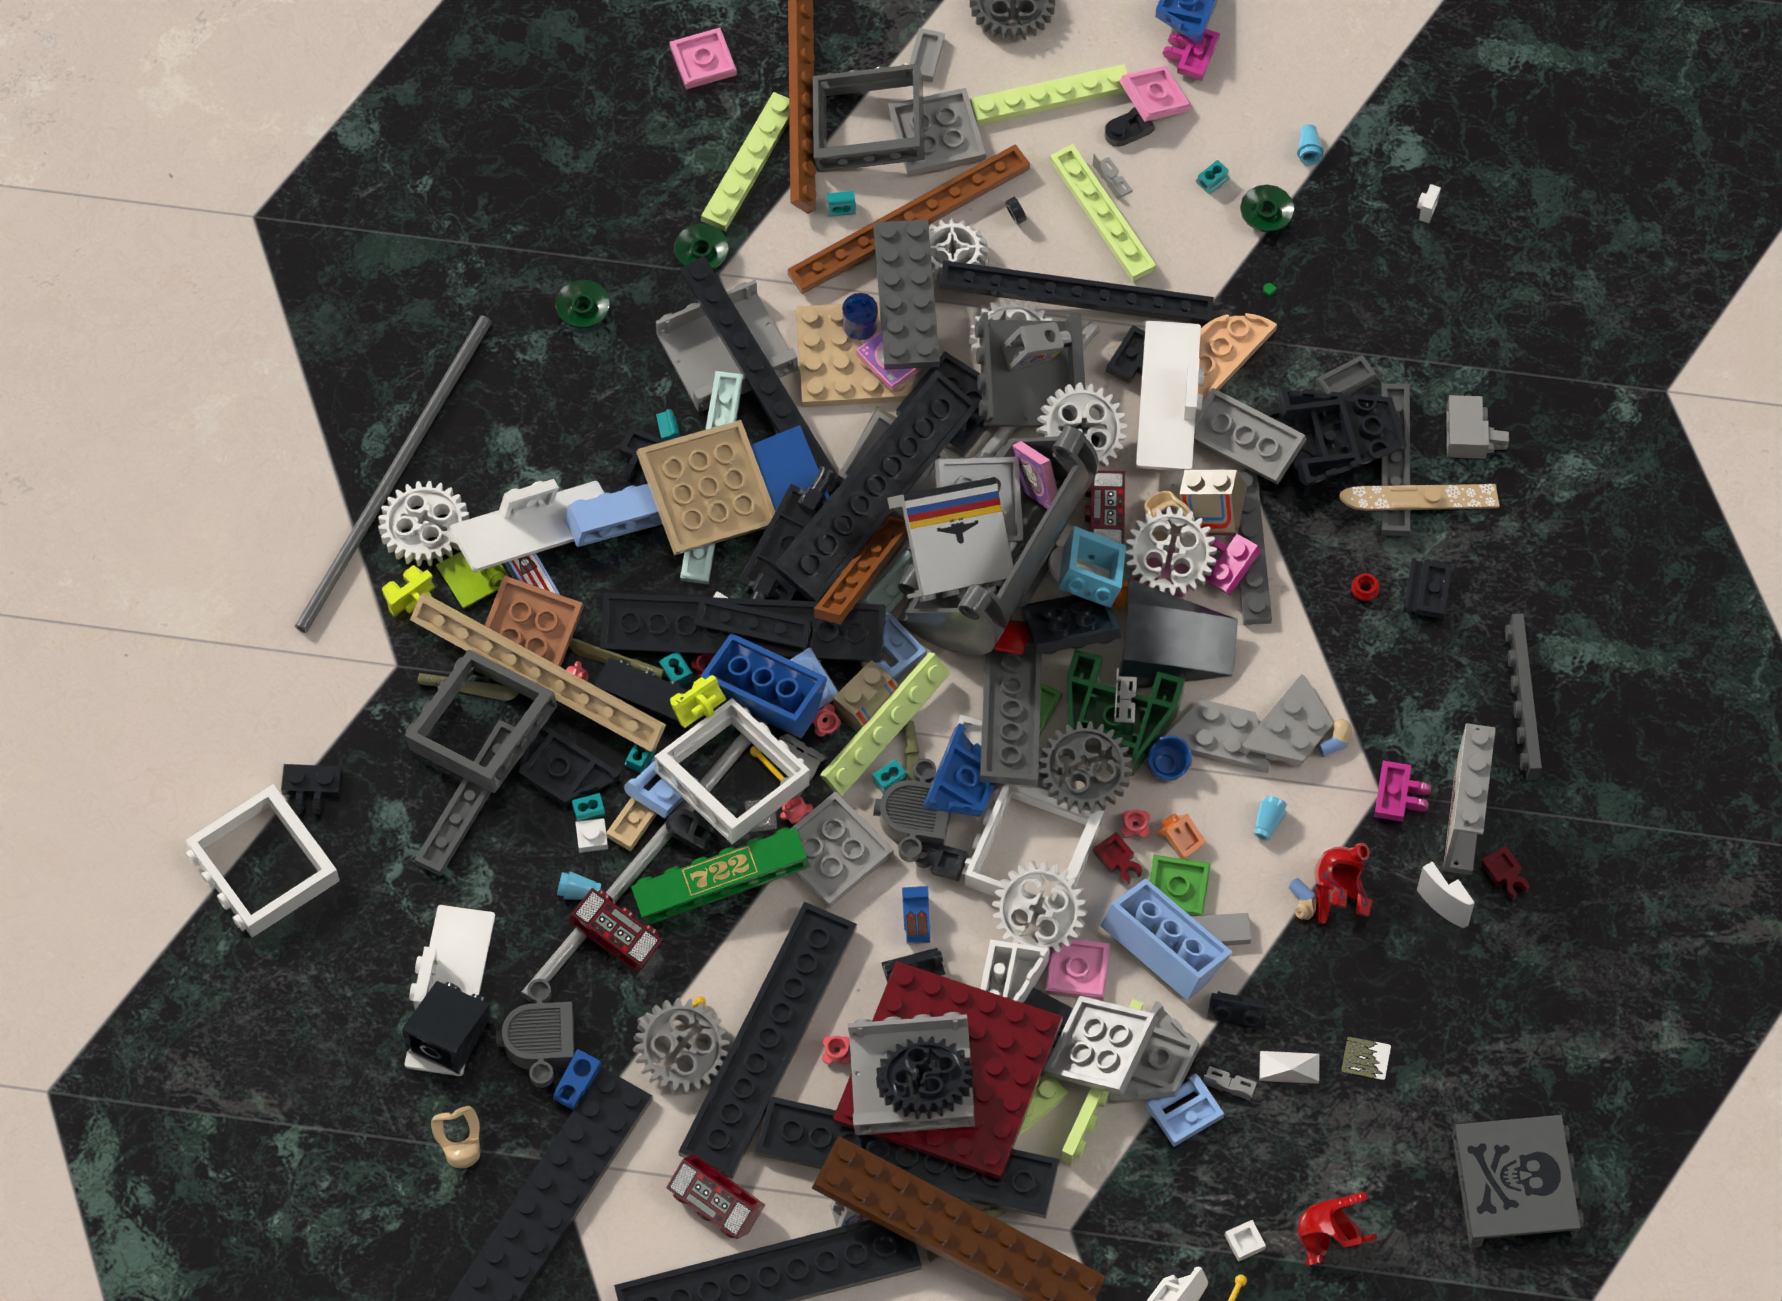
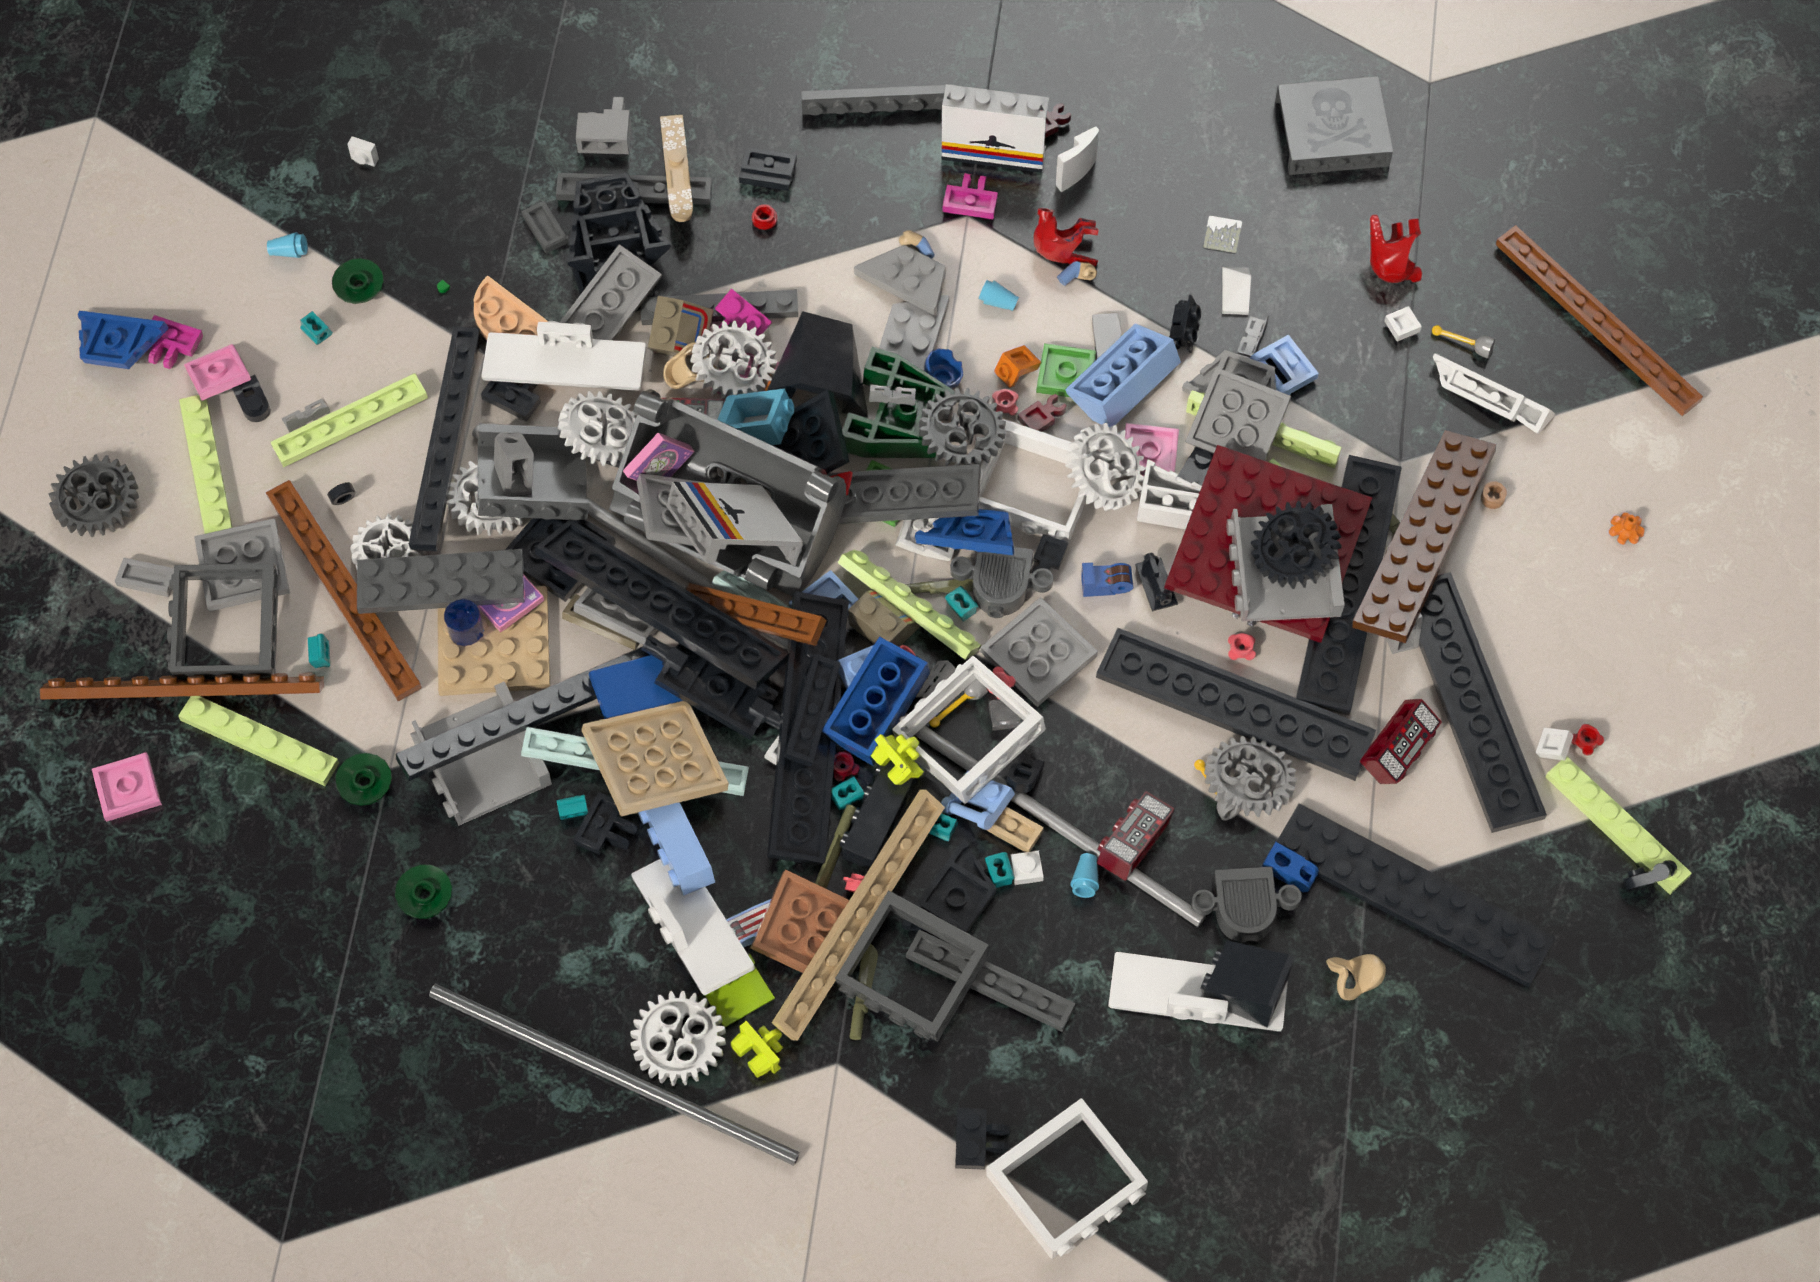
camera: 90 degrees left, 0 degrees up
(720, 875) = (1076, 743): green brick -> none

